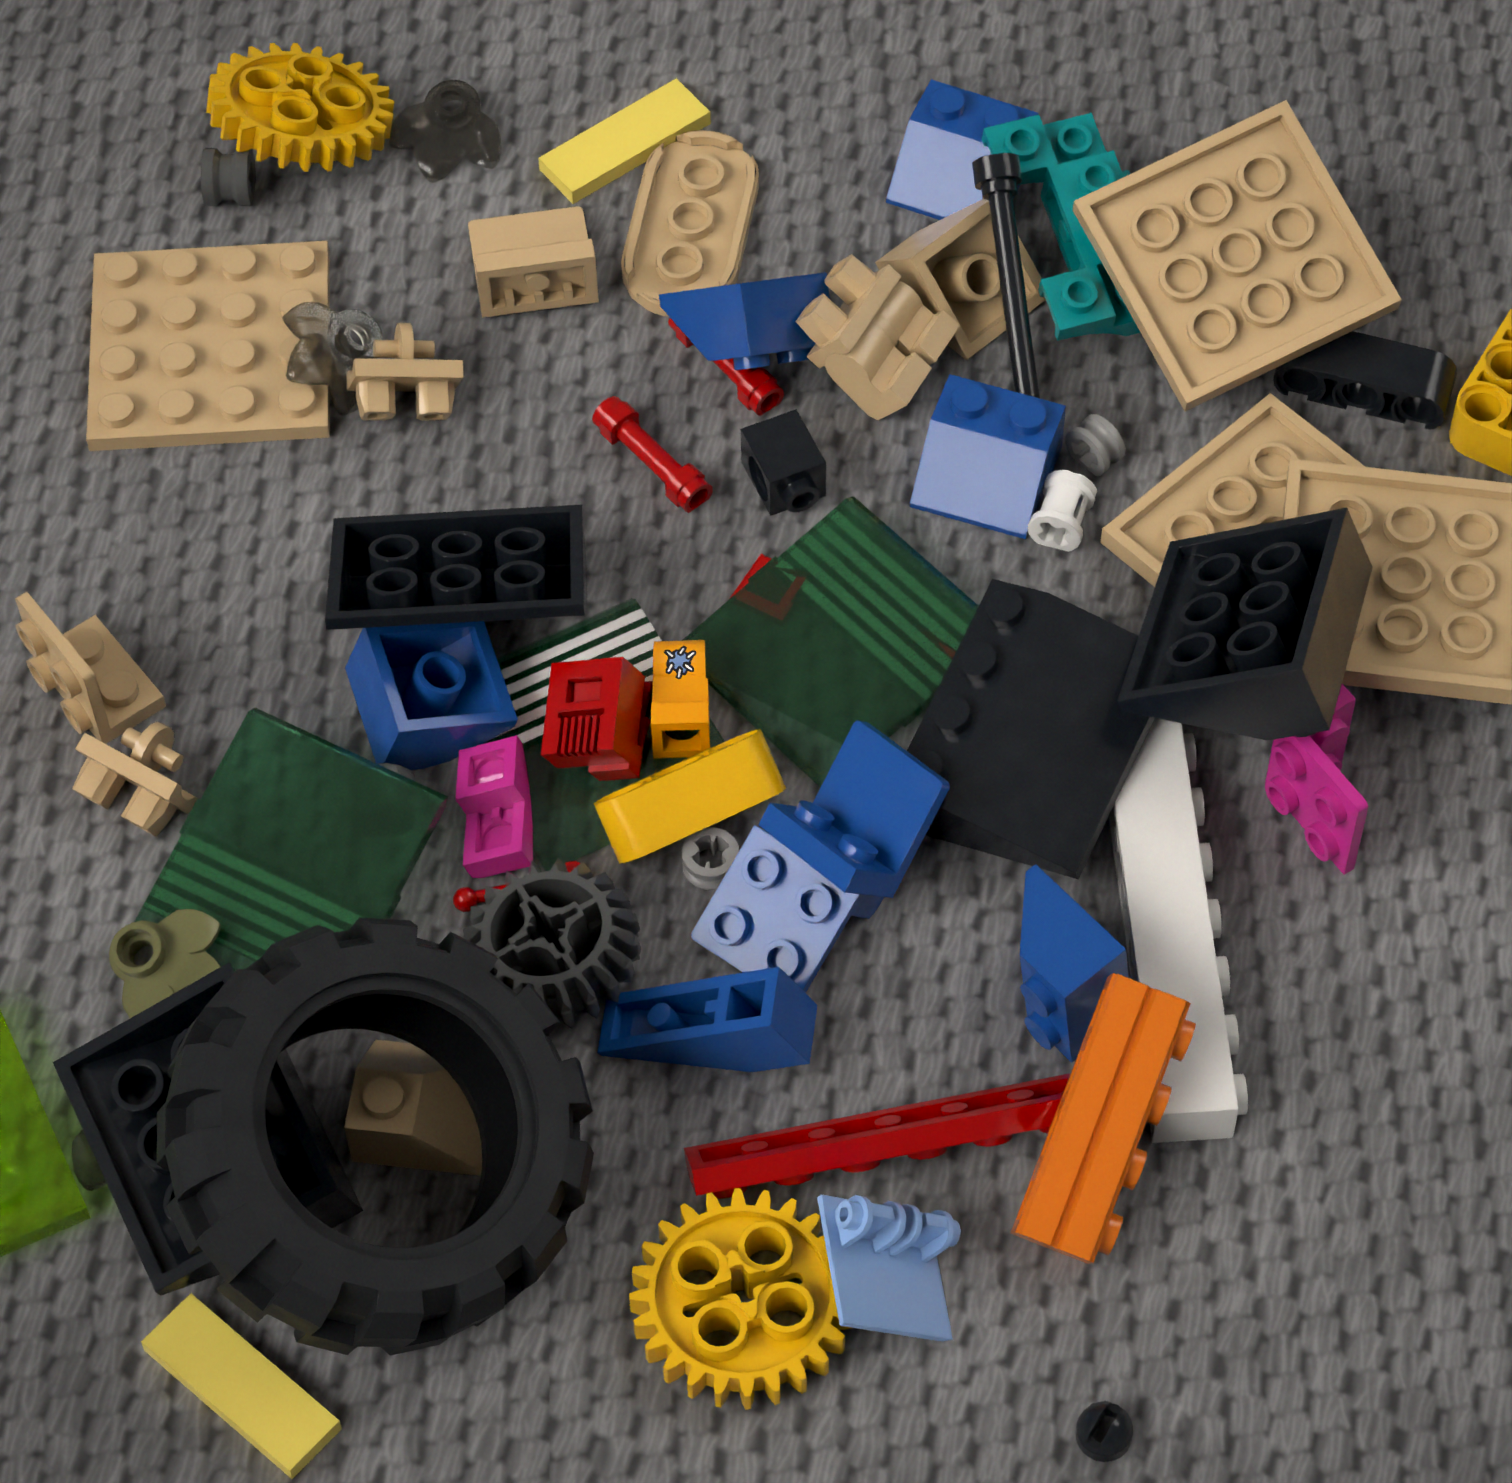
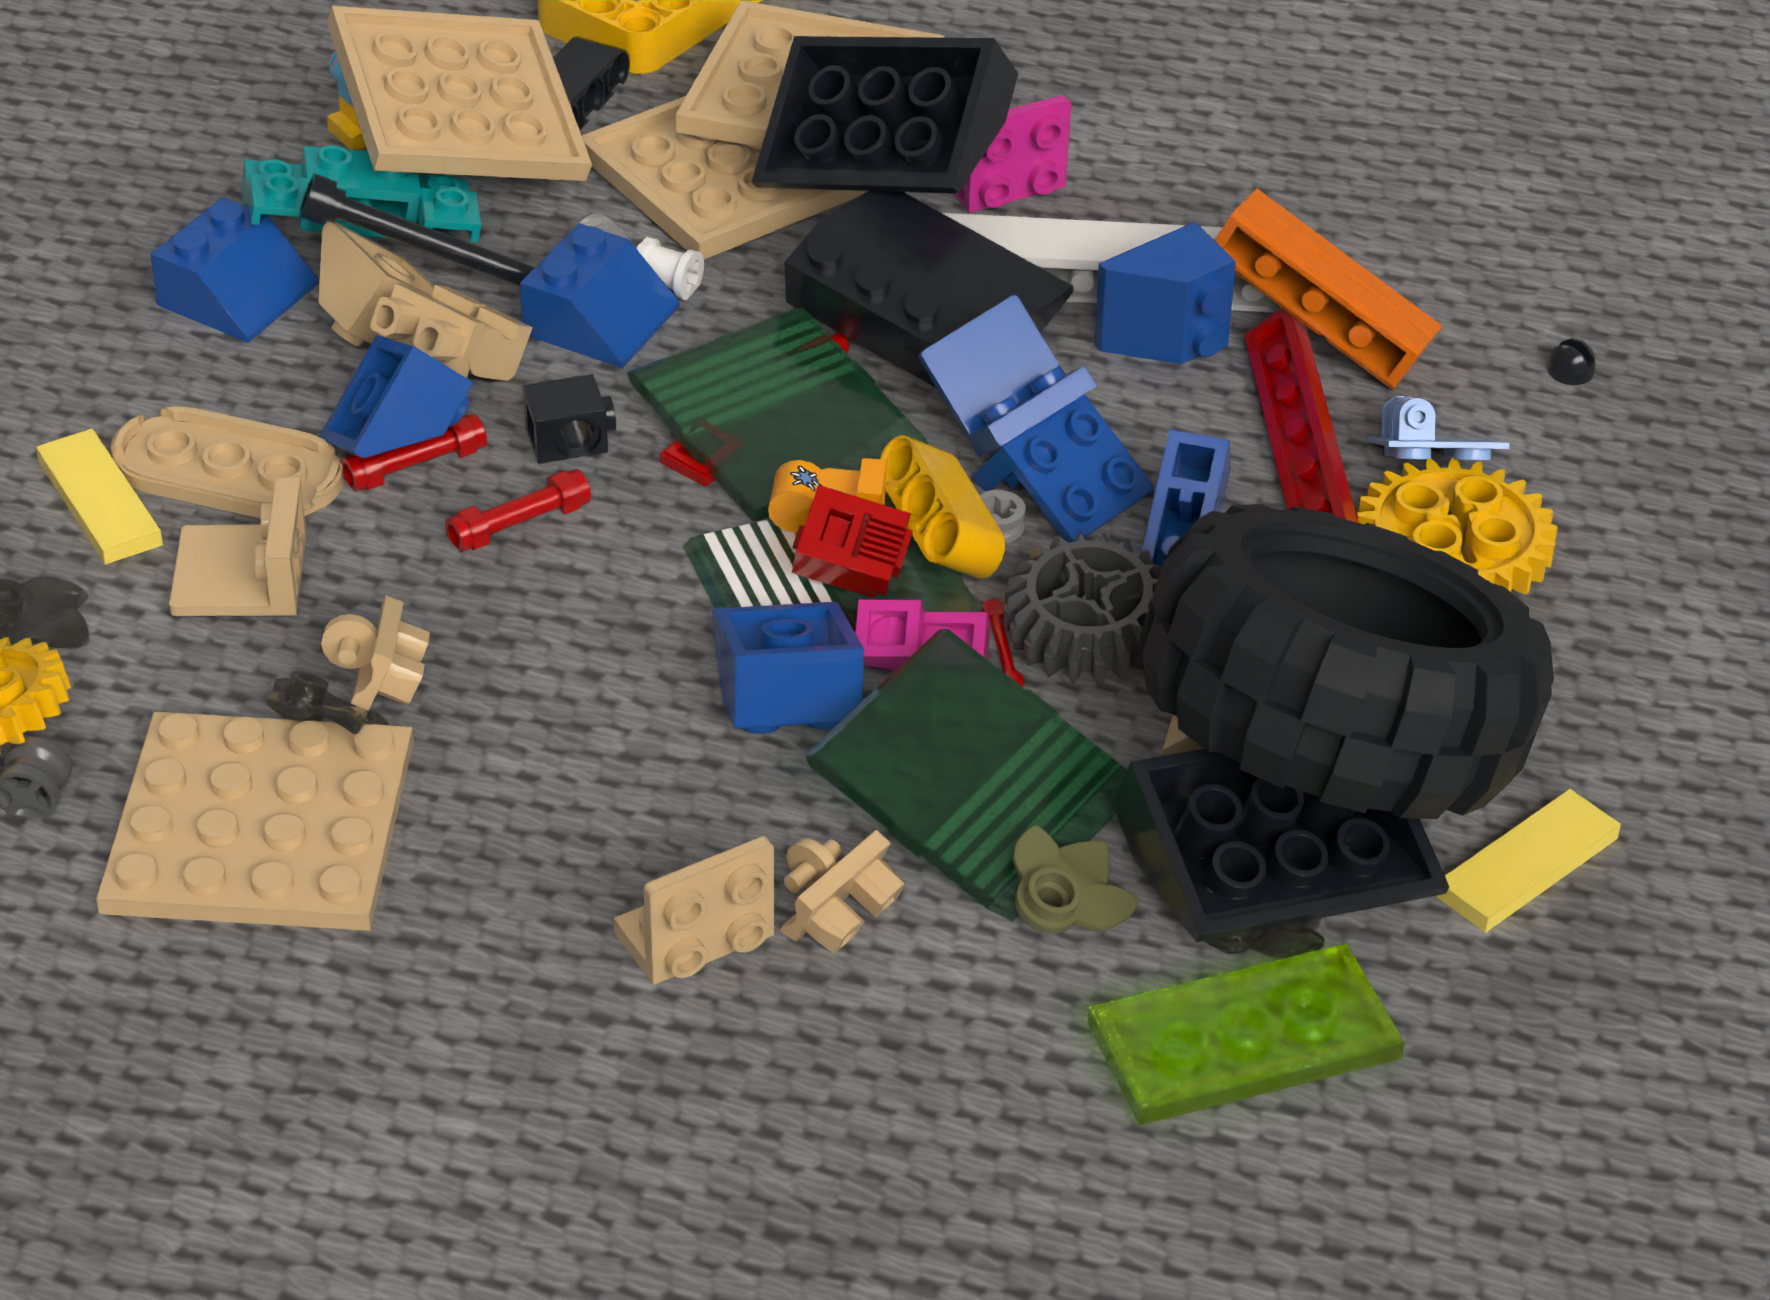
camera: 85 degrees left, 15 degrees down
(457, 567) = (677, 606): black slope -> none

